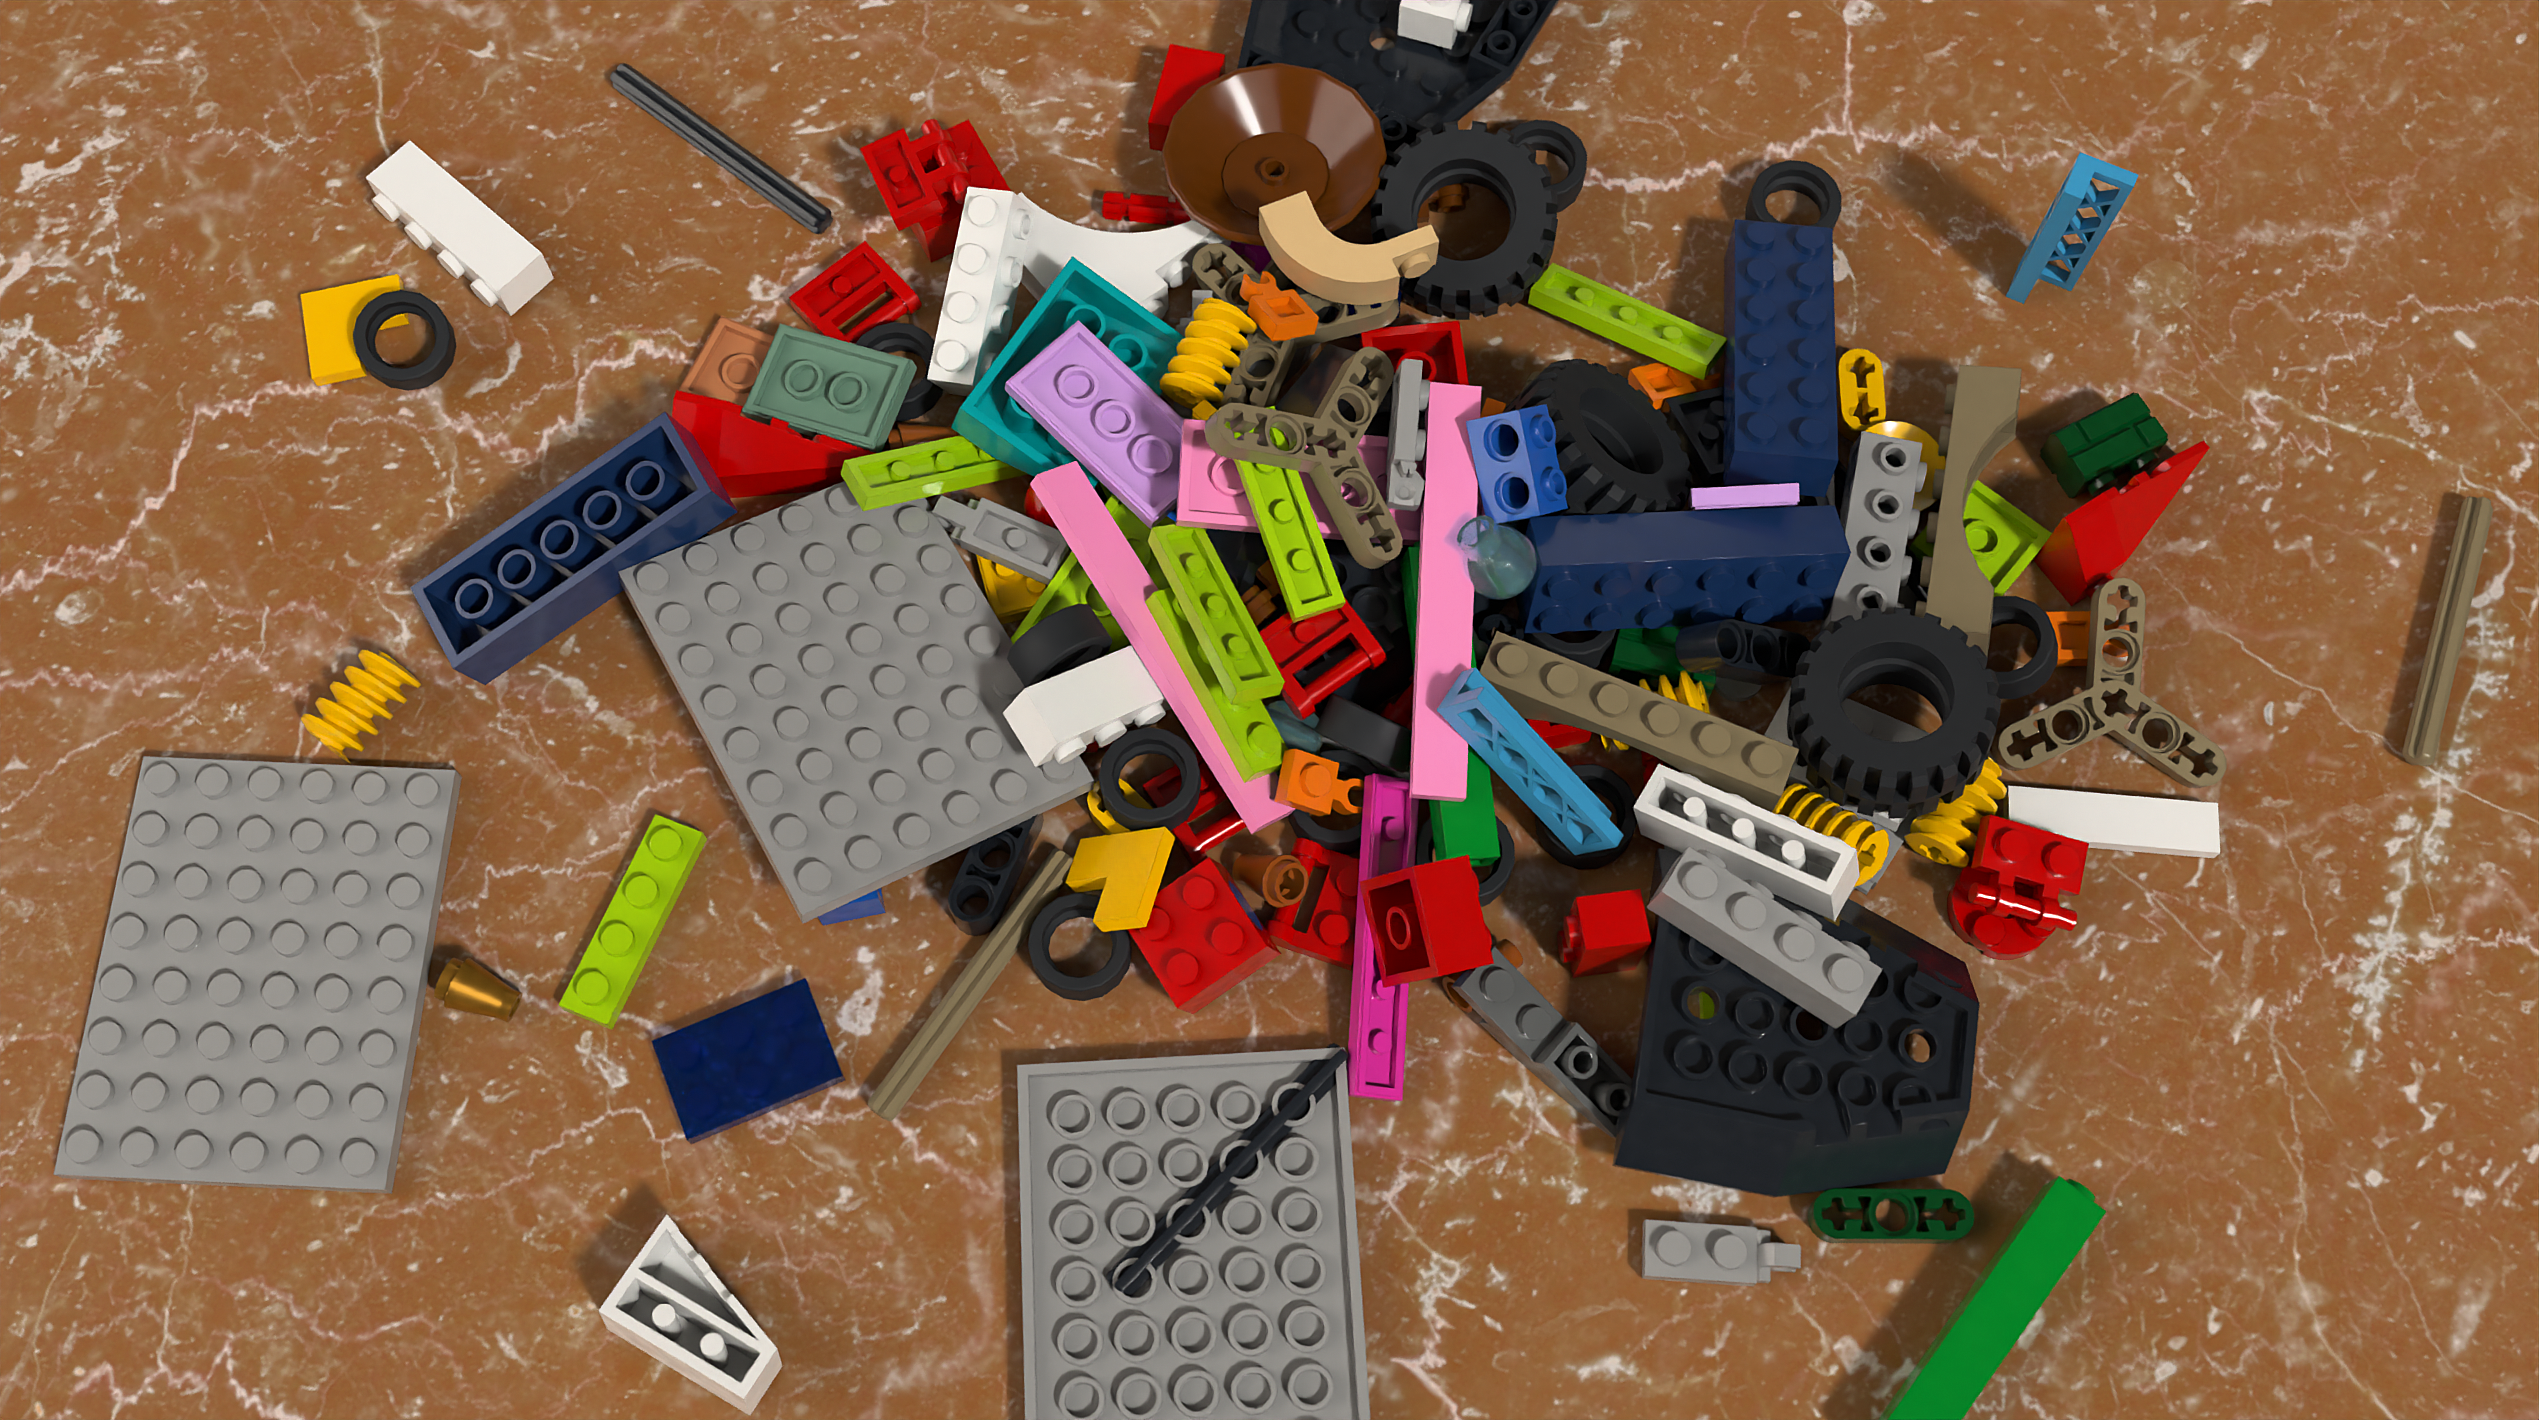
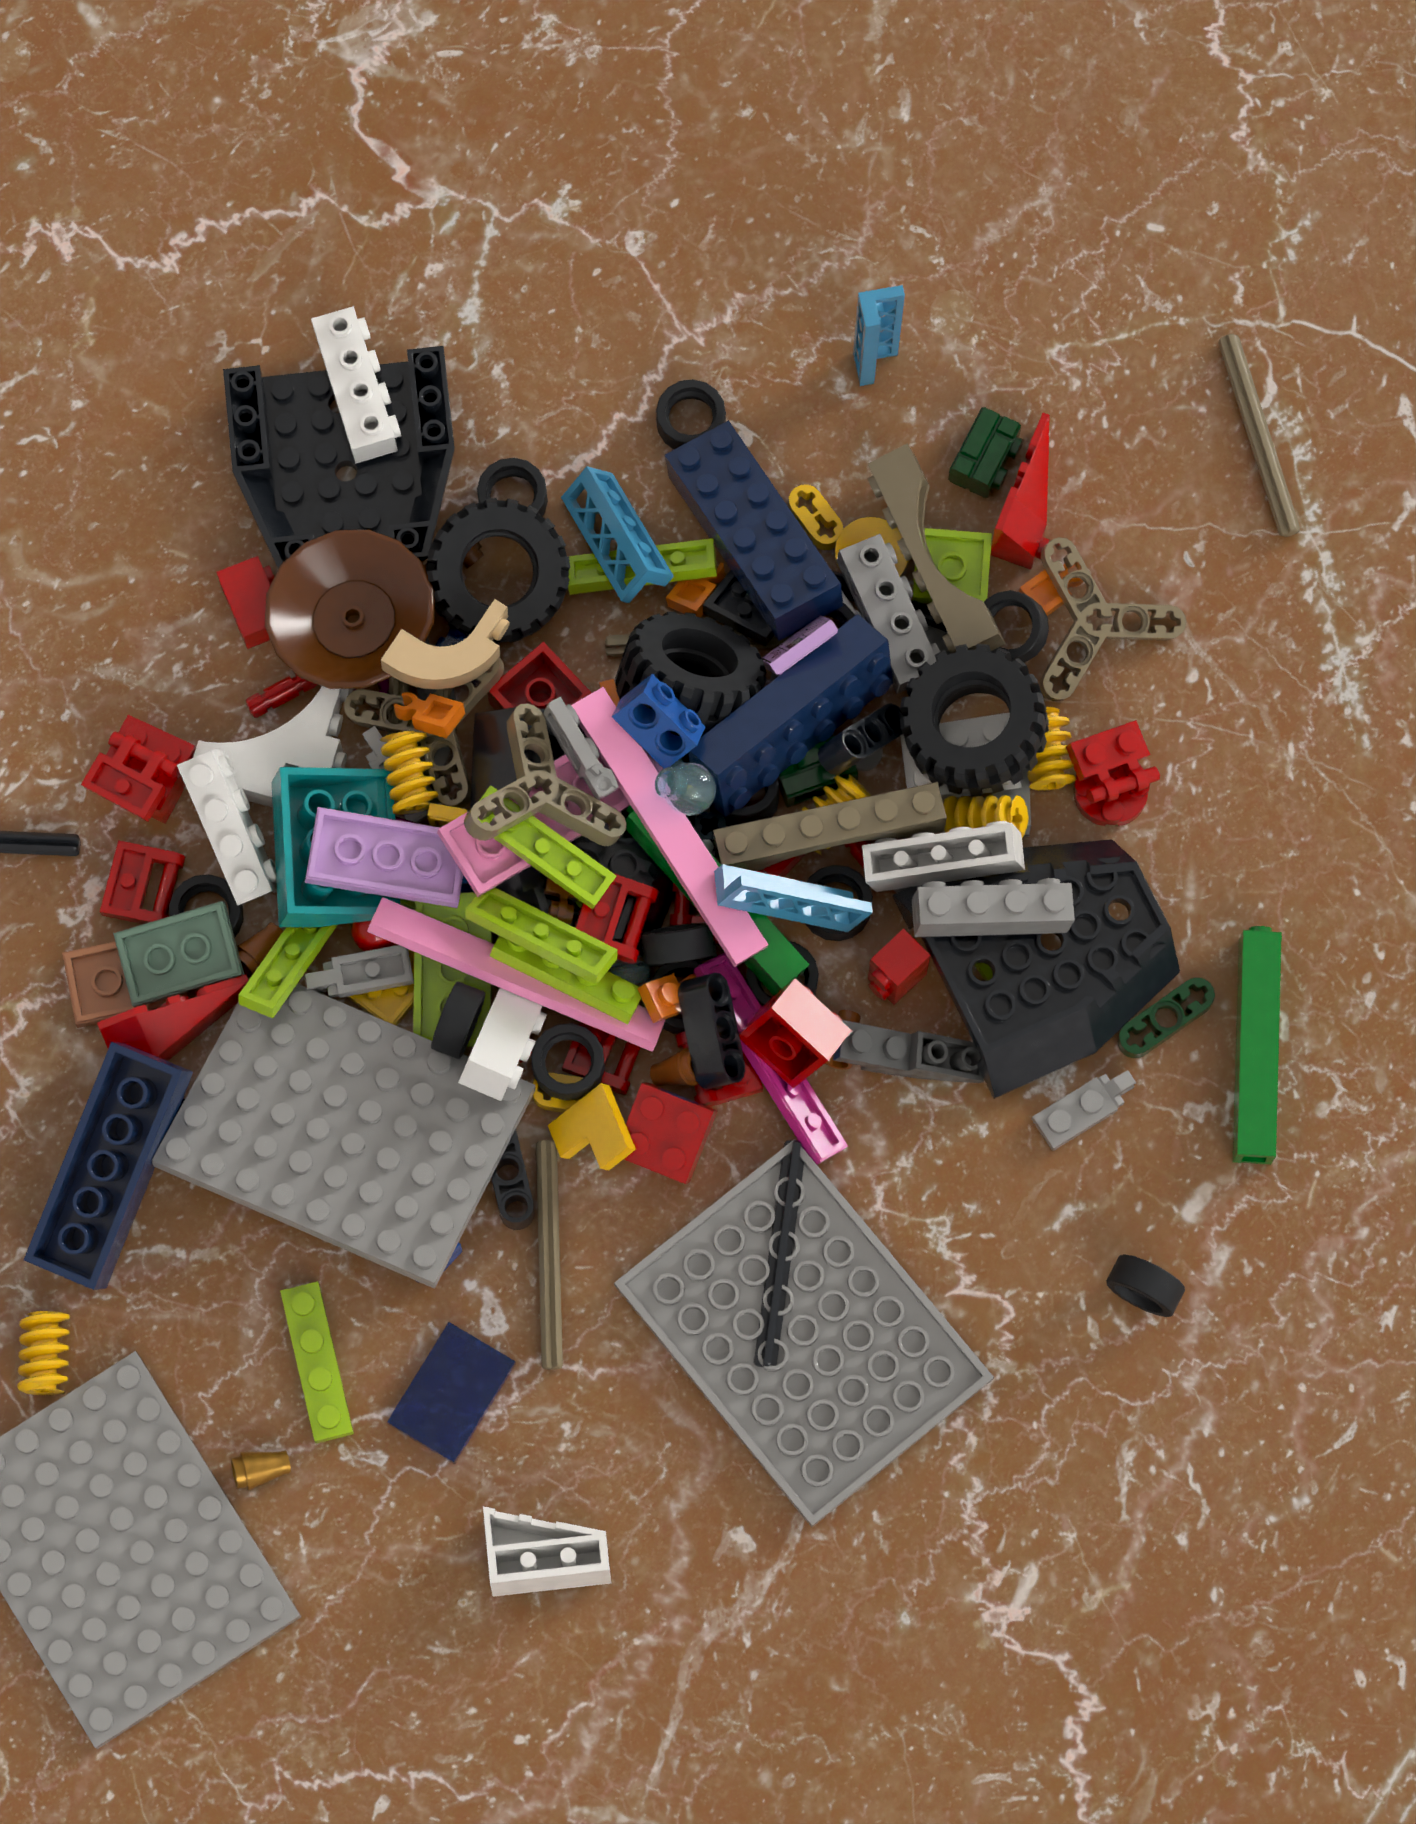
camera: 35 degrees left, 5 degrees up
(1067, 986) = (589, 1217): black tyre -> none
(1334, 855) = (711, 1031): none -> black beam
(1636, 267) = (618, 524): none -> dark azure fence
(2119, 820) = (1141, 691): white tile -> none

